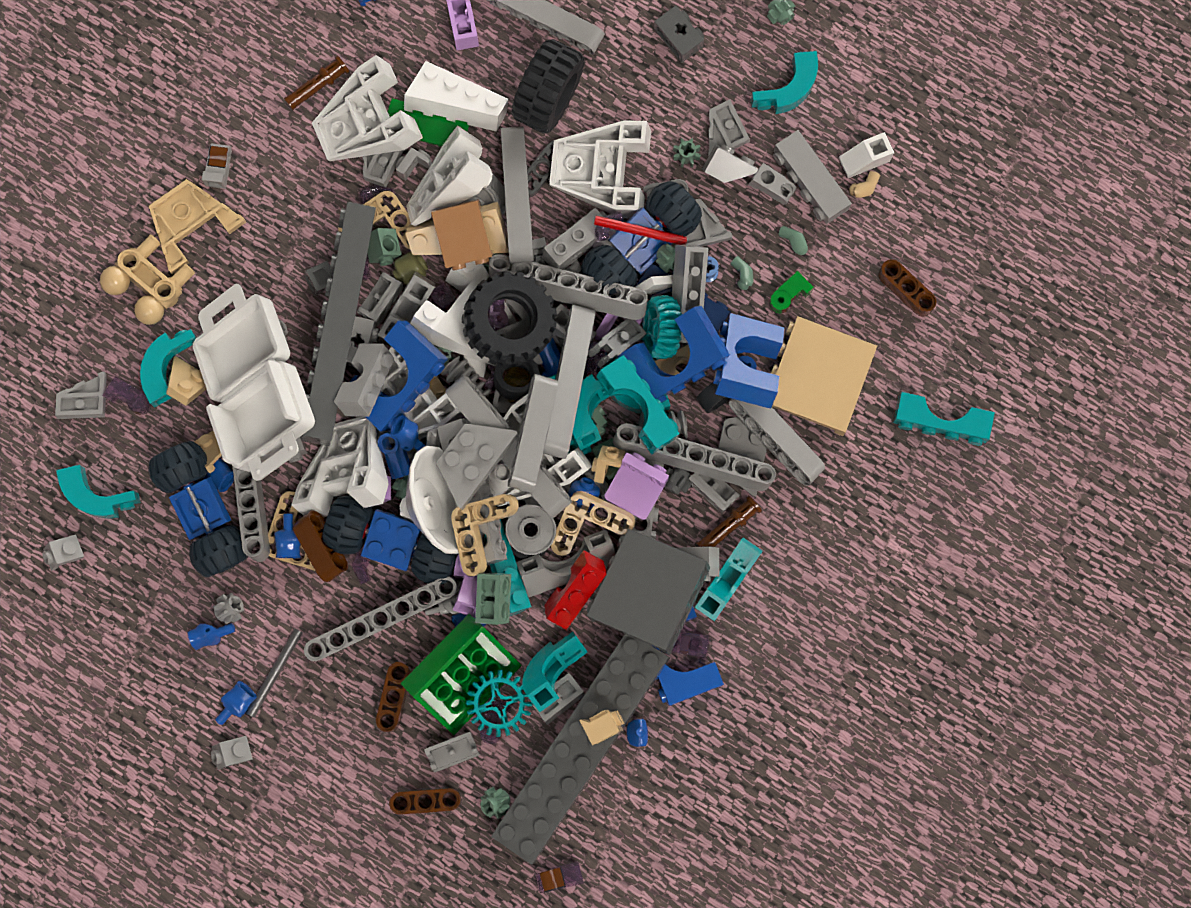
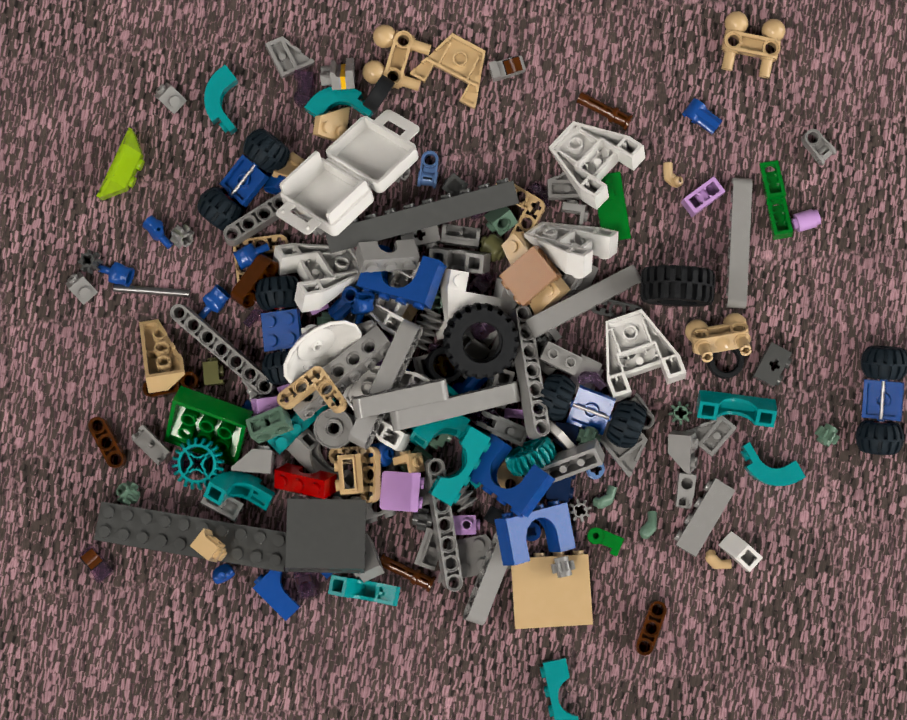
camera: 65 degrees right, 5 degrees up
(117, 641) = (123, 168): none -> lime wedge
(134, 348) = (339, 76): none -> light grey hips
(176, 311) = (378, 93): none -> black tyre
(214, 728) = (95, 262): none -> dark grey gear
(292, 302) = (428, 171): none -> medium blue piece
(321, 605) = (214, 301): none -> blue piece
(358, 693) = (161, 359): none -> tan wedge
(402, 642) = (213, 372): none -> olive brick
(429, 46) = (669, 177): none -> tan arm
(455, 98) = (639, 215): white wedge -> none
(472, 459) = (361, 362): light grey wing -> none
(528, 635) = (256, 461): none -> light grey slope
(597, 549) = (357, 473): none -> tan window
(626, 62) = (718, 338): none -> tan piece
(640, 230) = (596, 406): red bar -> none
(651, 62) = (725, 375): none -> black tyre
(706, 432) = (466, 524): none -> lavender brick
(721, 69) = (756, 409): none -> teal arch
(744, 299) = (584, 509): none -> light grey gear
(800, 347) = (563, 566): none -> light grey gear

